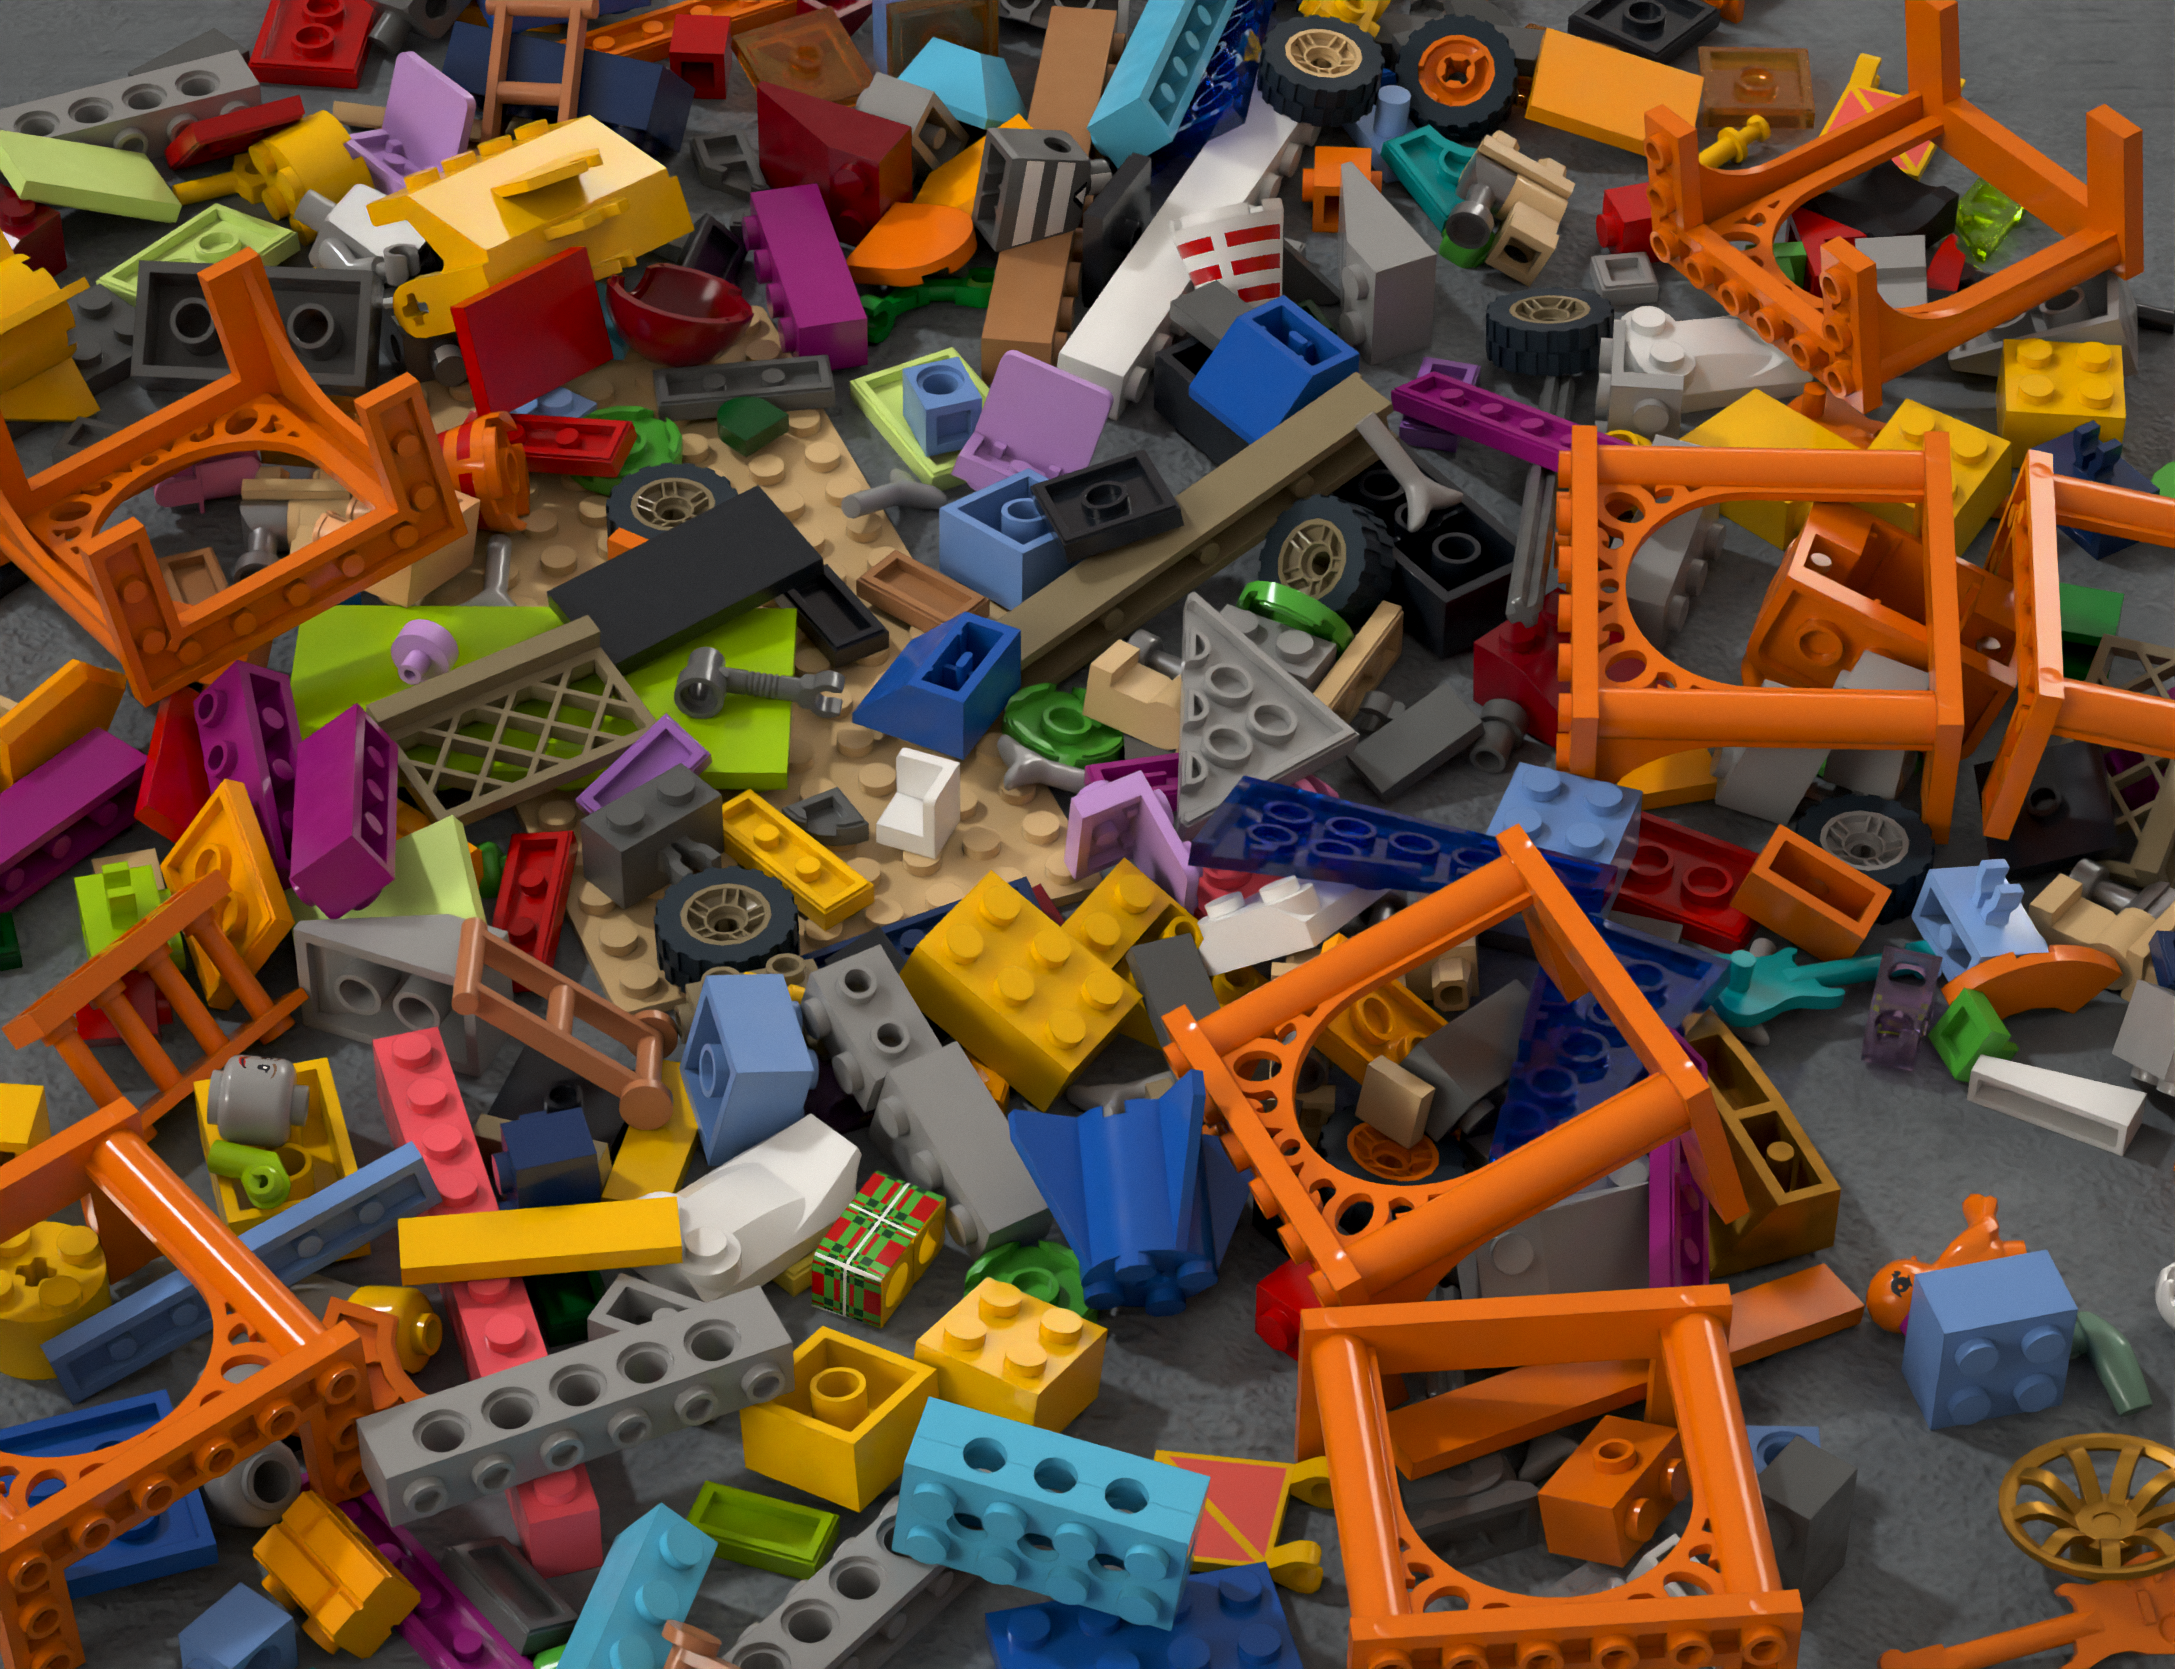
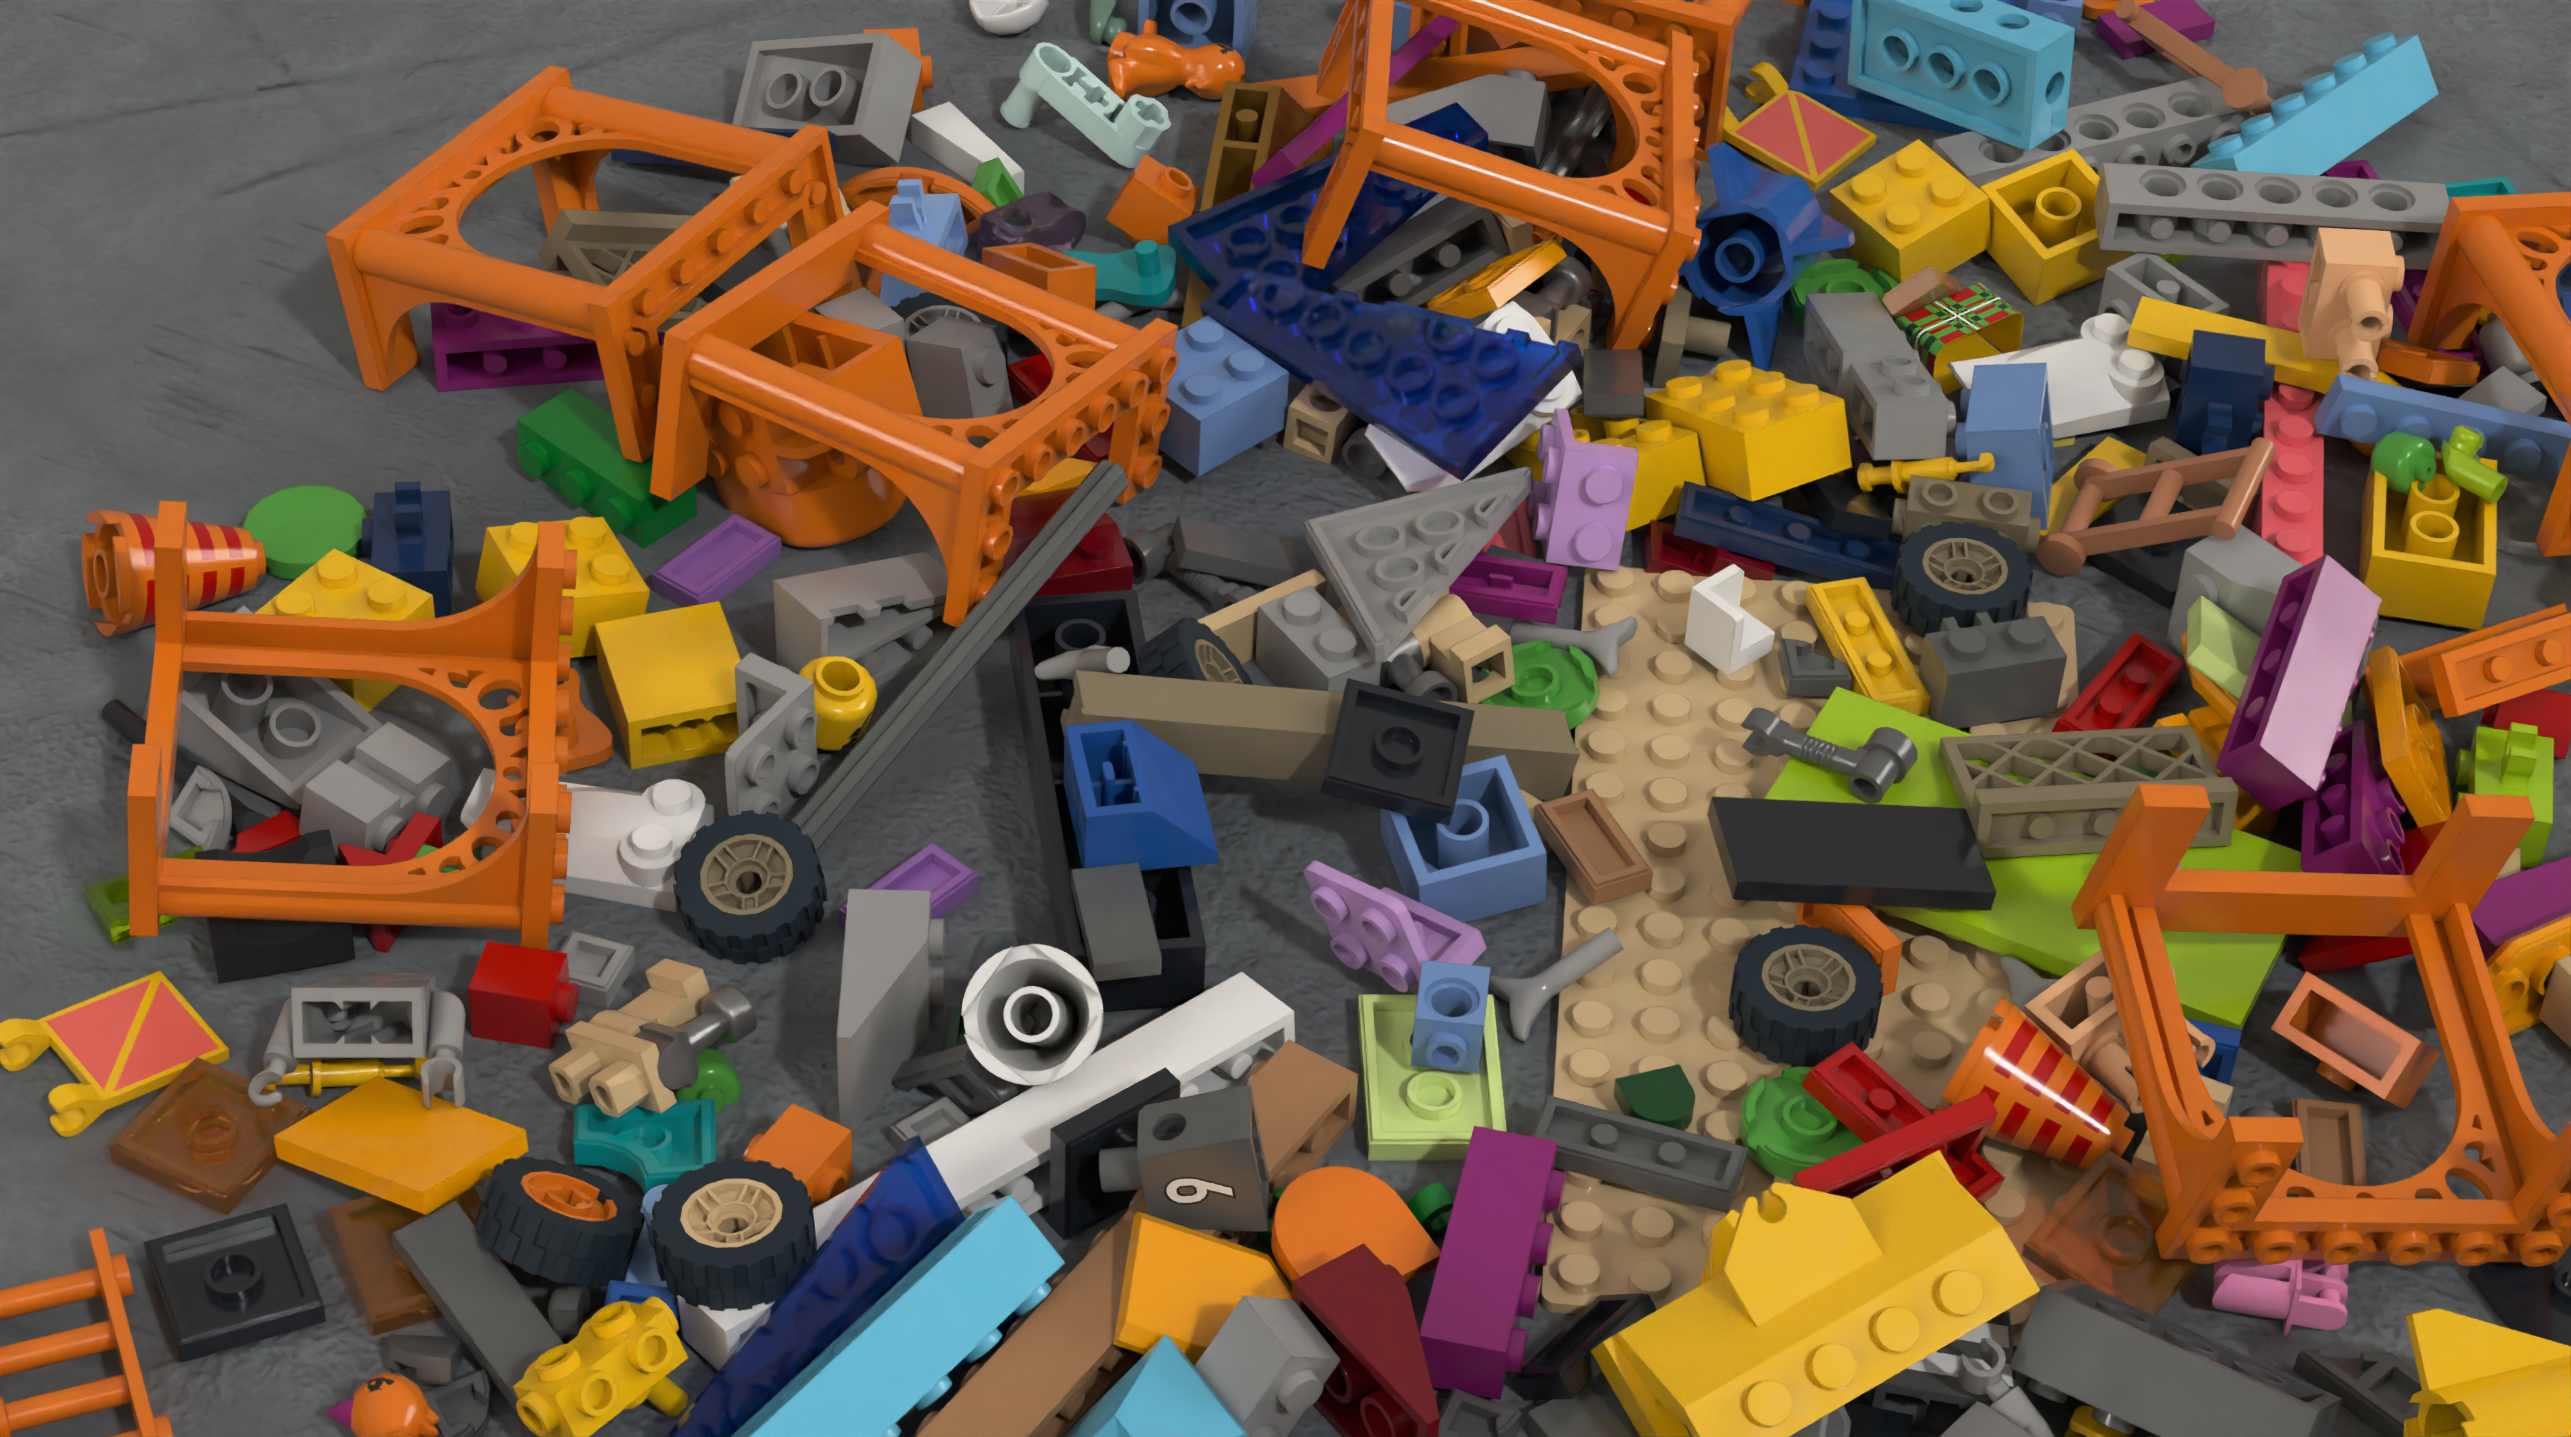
camera: 155 degrees left, 0 degrees up
(257, 1101) = (2456, 488): light grey head -> none
(322, 1167) = (2404, 460): none -> bright green piece
(437, 1206) = (2349, 298): none -> light nougat brick
(651, 755) = (1969, 716): medium lavender tile -> none
(678, 315) = (1674, 1181): dark red cylinder -> none
(835, 619) = (1690, 862): black tile -> none
(931, 1241) = (1920, 290): none -> medium nougat tile
(947, 685) = (1646, 708): blue slope -> none
(1296, 611) = (1276, 643): bright green tile -> none
(1489, 418) = (909, 718): magenta tile -> none
(1729, 120) = (369, 1019): none -> light grey torso
(1803, 1061) = (1152, 201): none -> orange brick
(1936, 1169) = (1116, 127): none -> light aqua beam
(1997, 260) = (203, 810): none -> light grey tile

